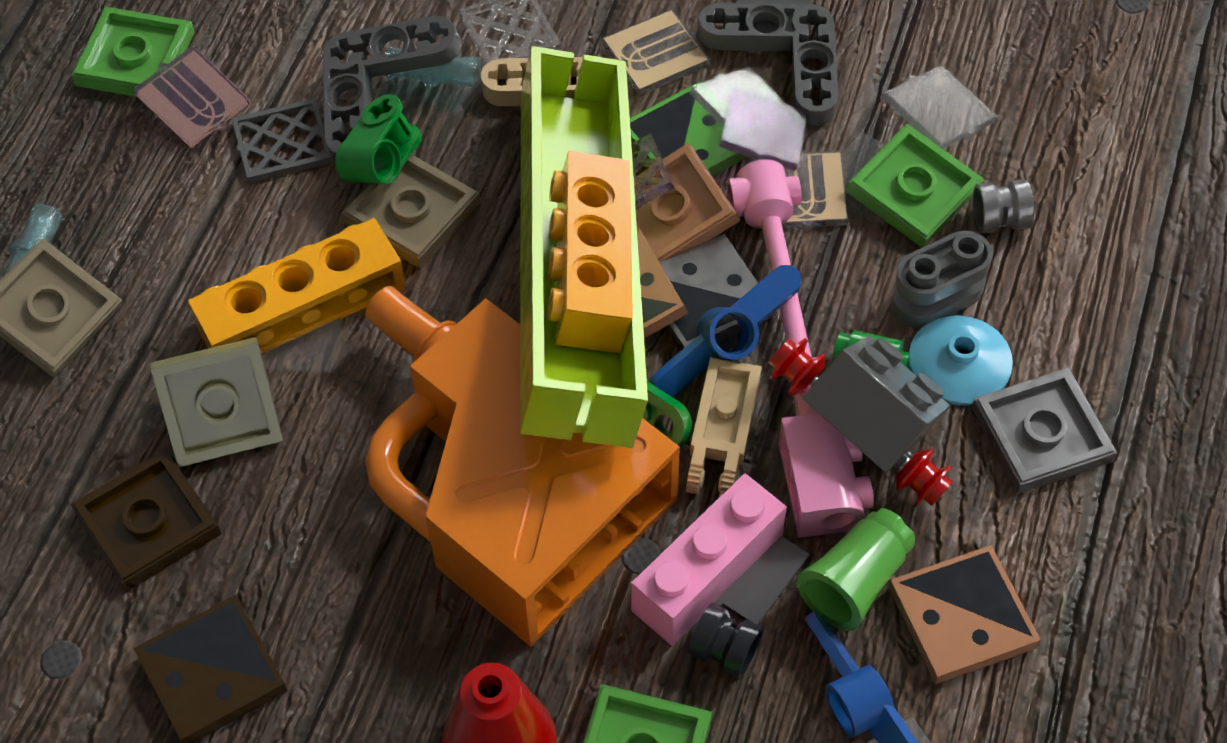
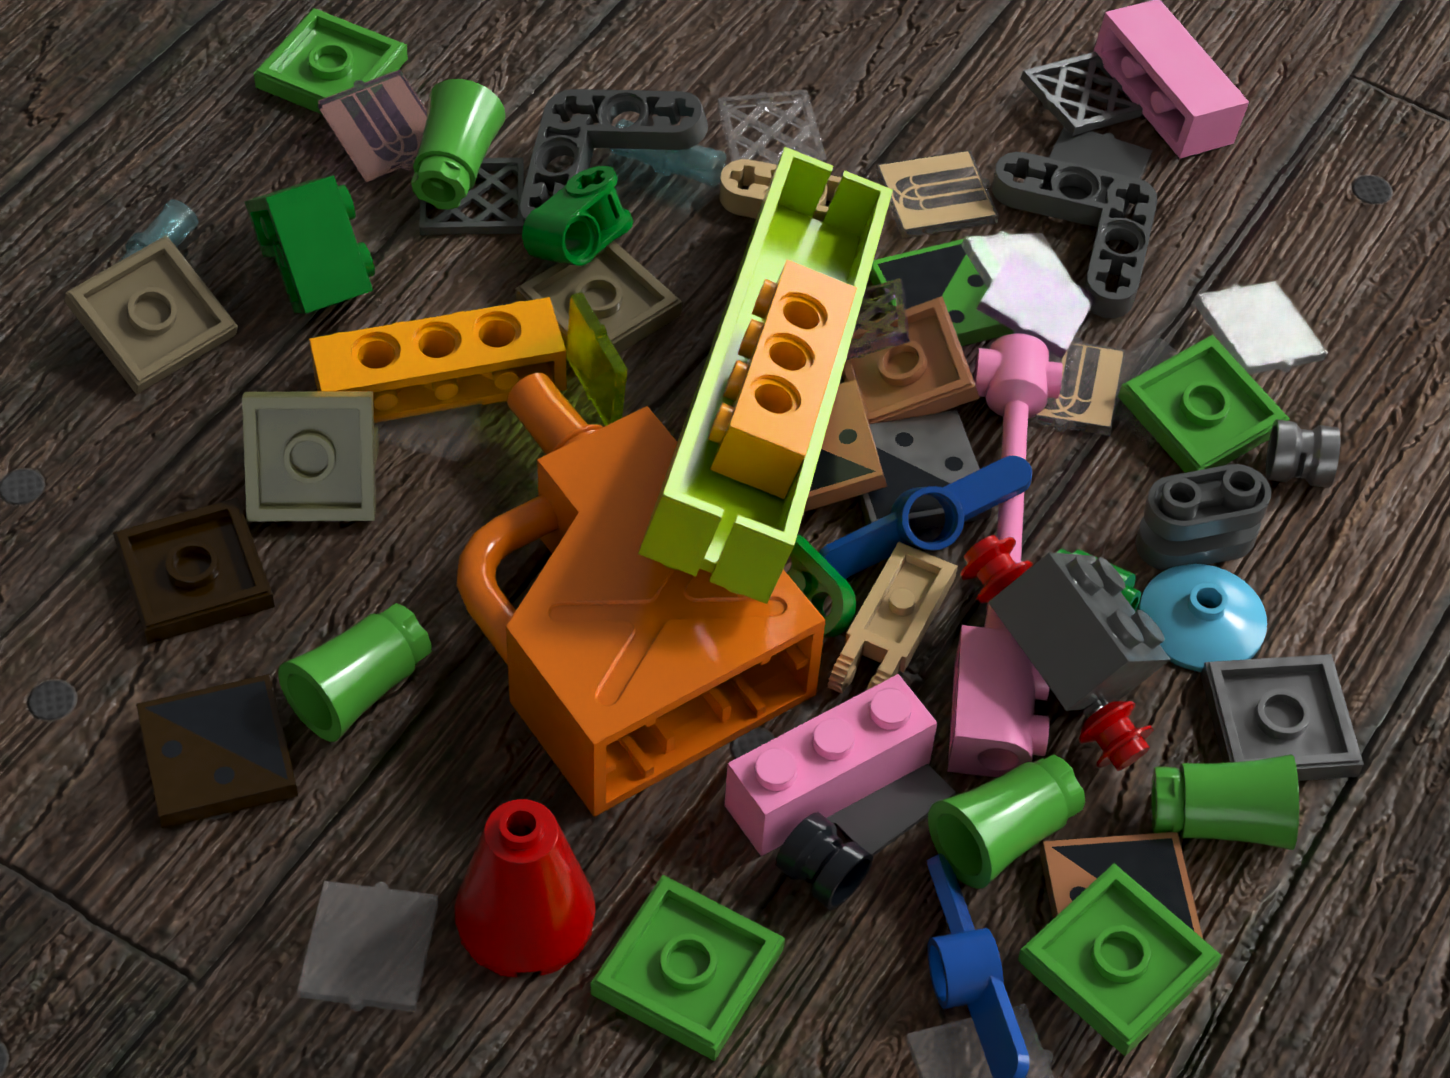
camera: 10 degrees right, 5 degrees down
(165, 214) = (313, 243): none -> green brick
(257, 94) = (455, 139): none -> bright green plant
(304, 575) = (353, 670): none -> bright green plant
(428, 264) = (595, 360): none -> clear neon green piece
(976, 662) = (1119, 959): none -> bright green tile
(1026, 510) = (1229, 801): none -> bright green plant

